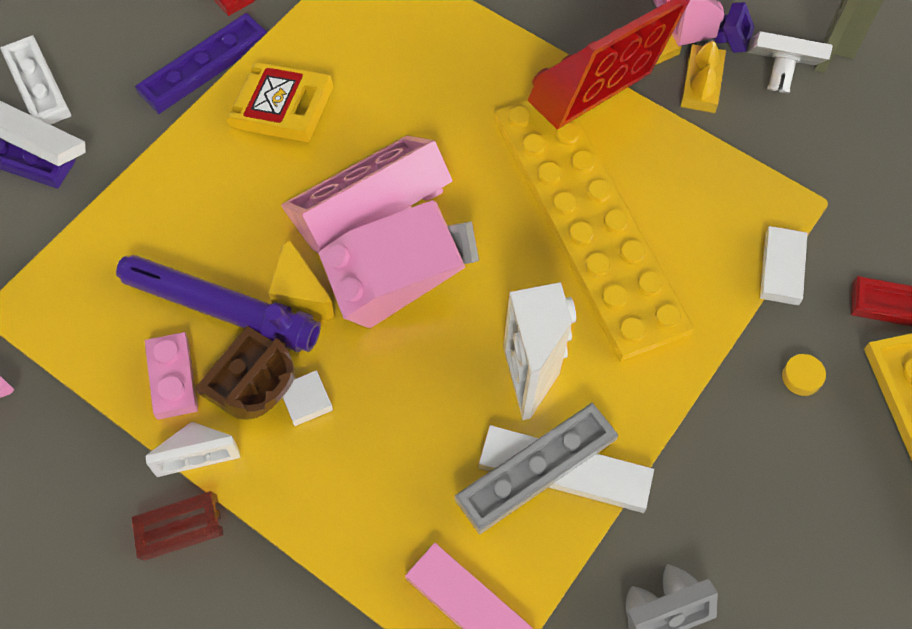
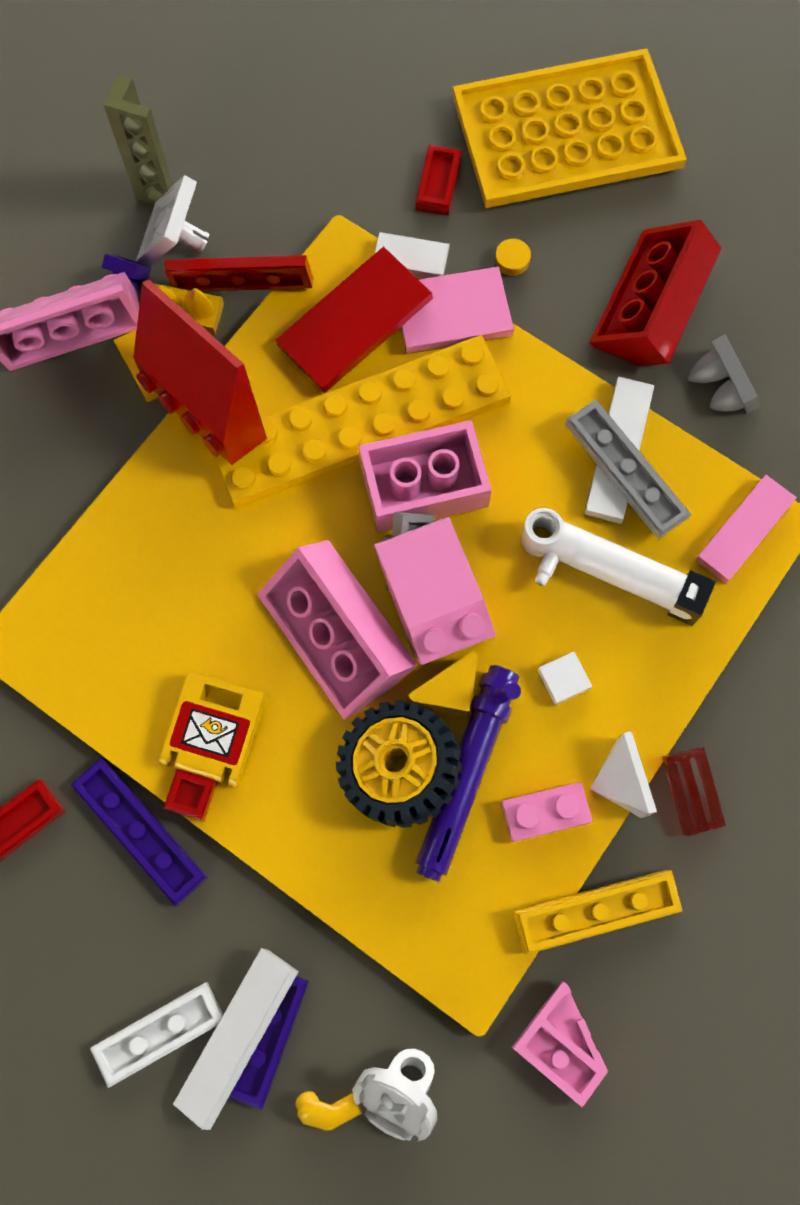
camera: 90 degrees left, 10 degrees up
(69, 423) = (597, 911): none -> yellow tile
(222, 89) = (190, 795): none -> red tile
(225, 236) = (423, 782): none -> wheel
(249, 376) = (551, 727): reddish brown slope -> none
(389, 516) = (679, 593): none -> white piece
(517, 251) = (426, 473): none -> bright pink brick
(537, 341) = (533, 452): white slope -> none
(700, 209) = (354, 319): none -> red tile
(724, 305) = (460, 309): none -> bright pink tile
(740, 113) = (240, 273): none -> red tile
(775, 531) = (657, 293): none -> red slope

